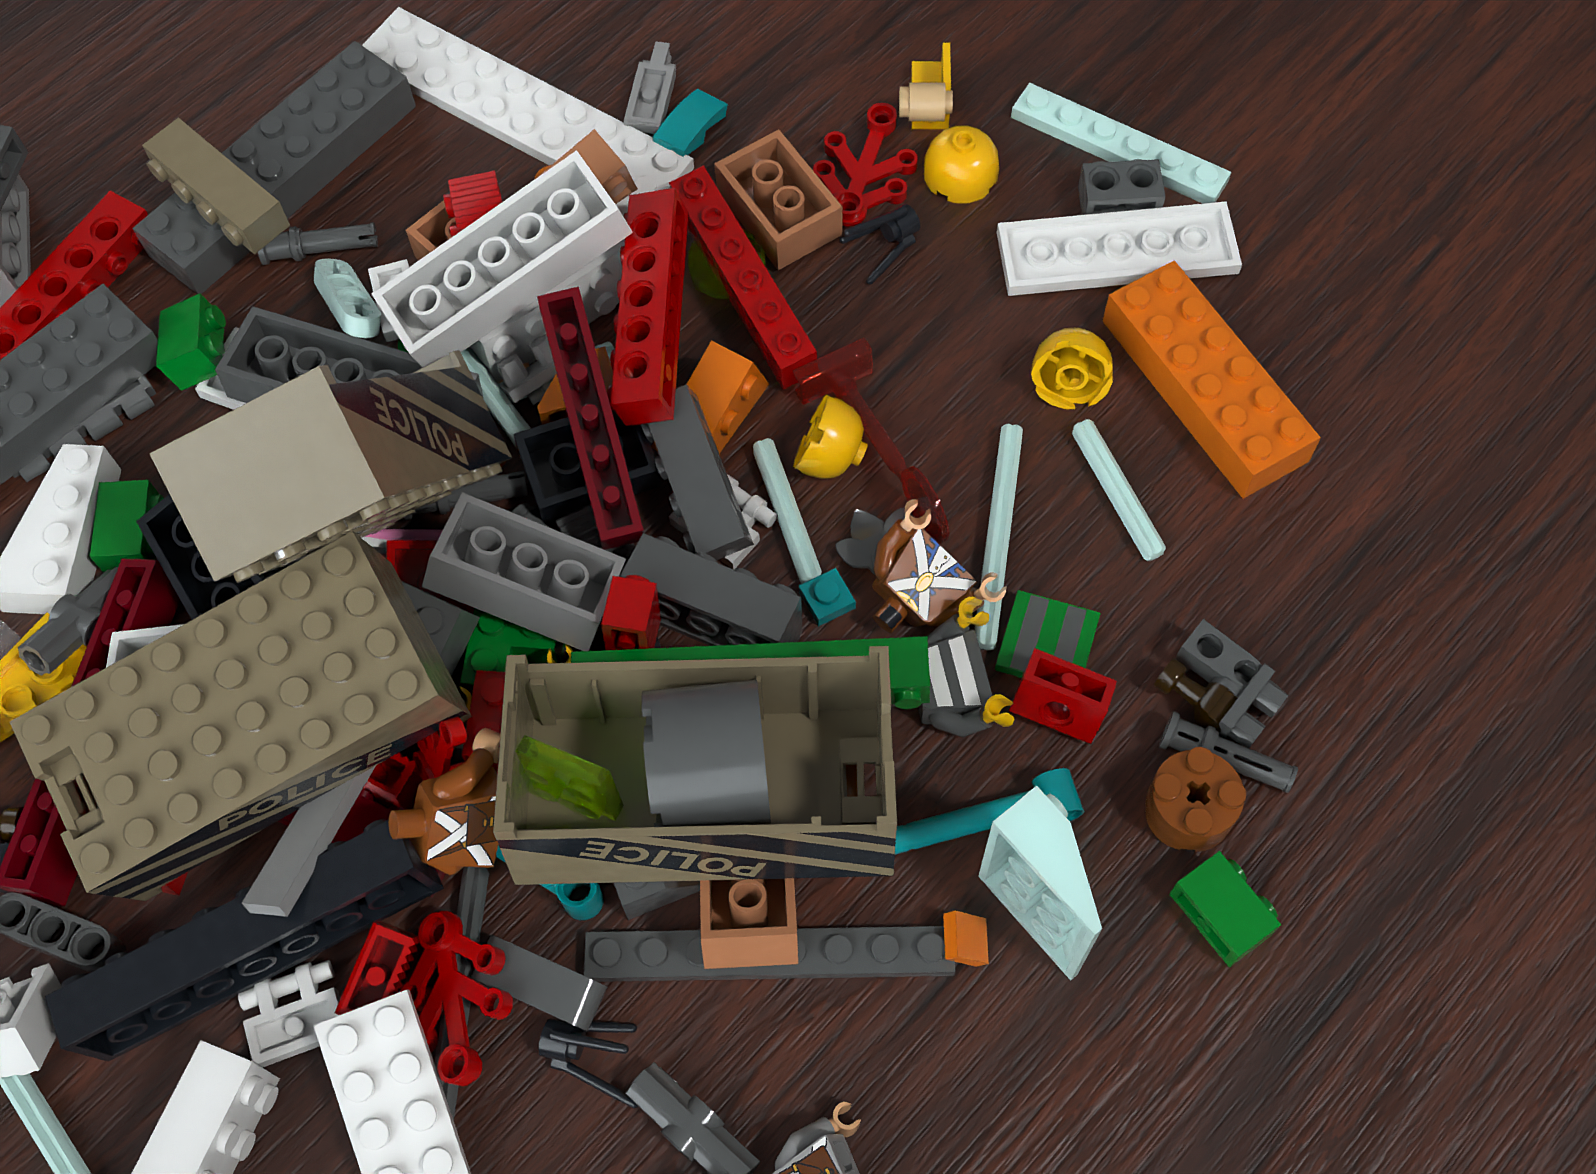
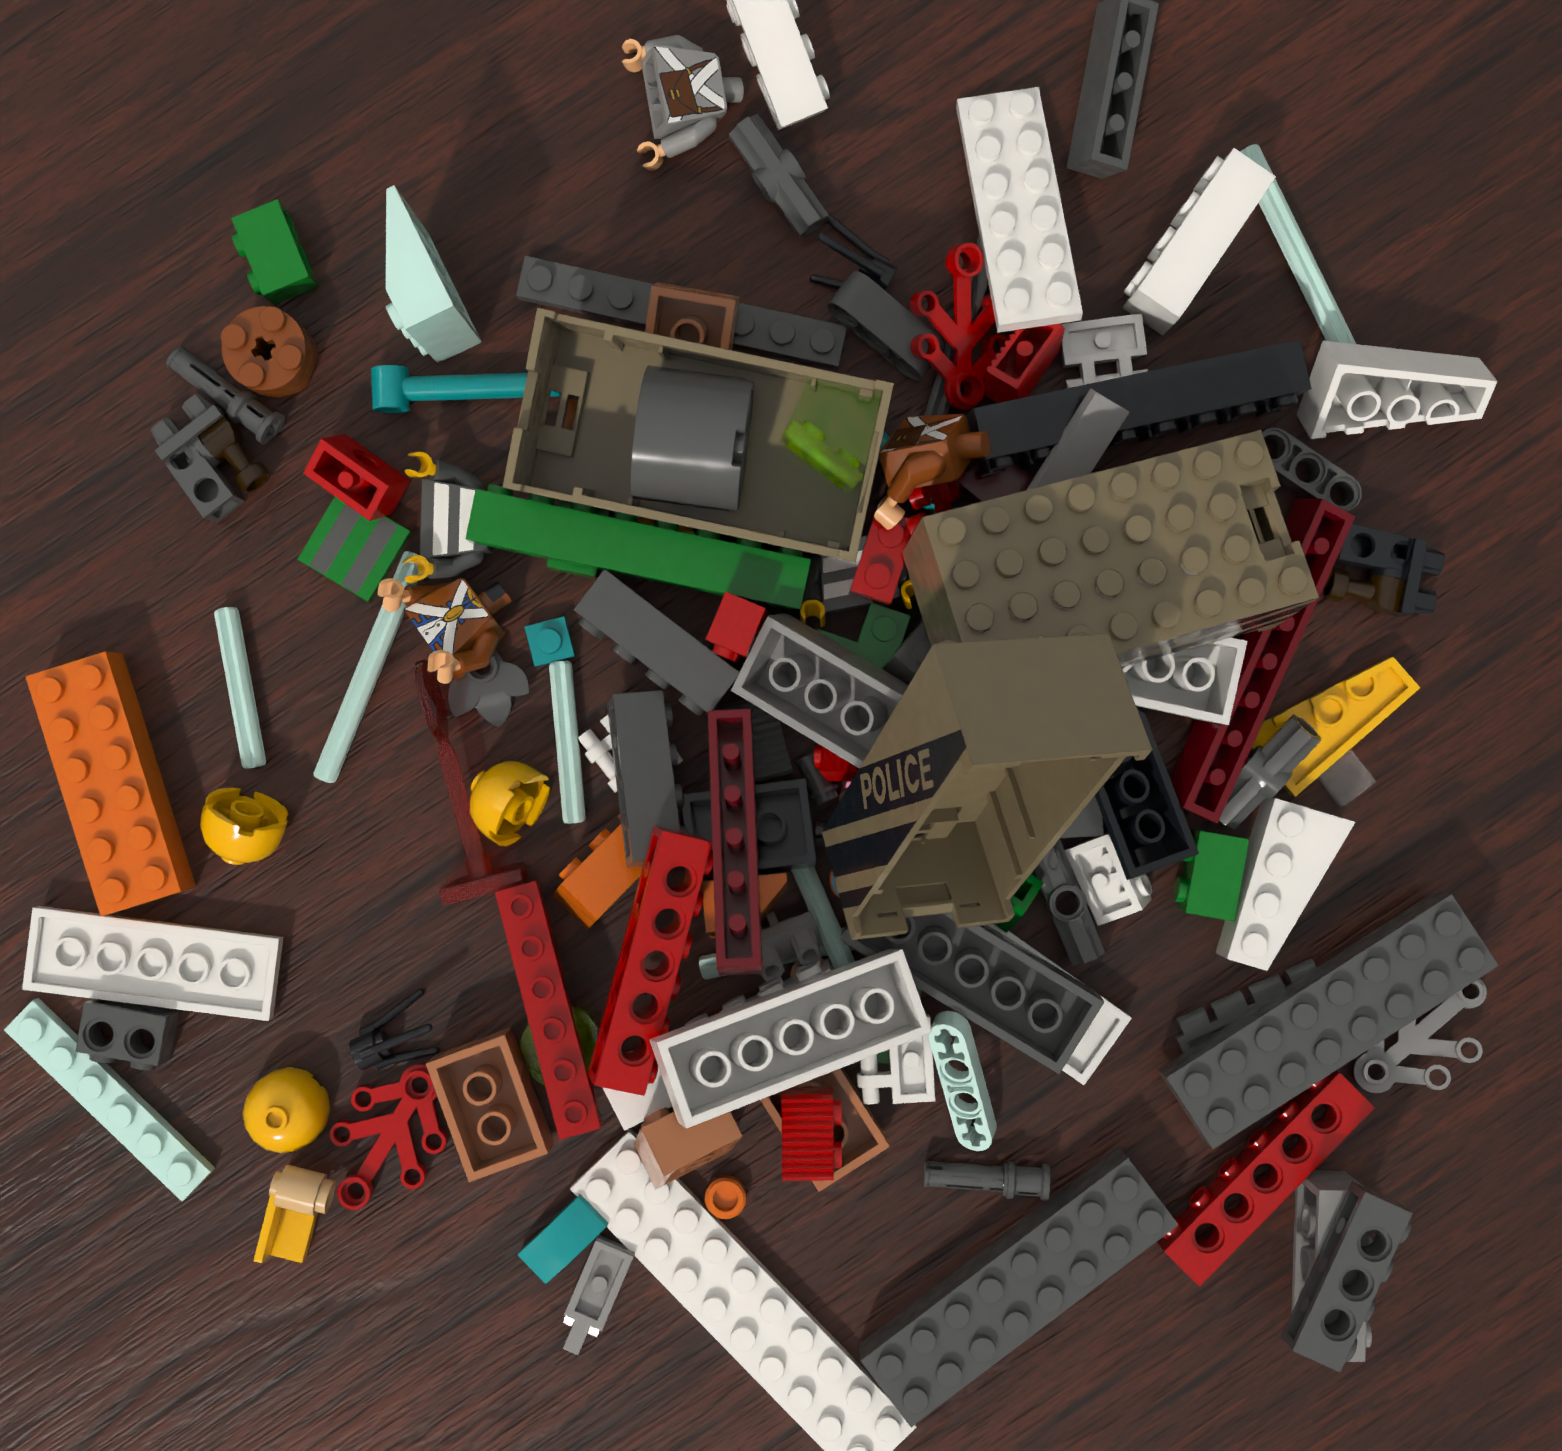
camera: 170 degrees left, 25 degrees up
(190, 341) = (1129, 1071): green brick -> none
(216, 186) = (1083, 1244): dark tan brick -> none
(965, 938) = (508, 280): orange tile -> none

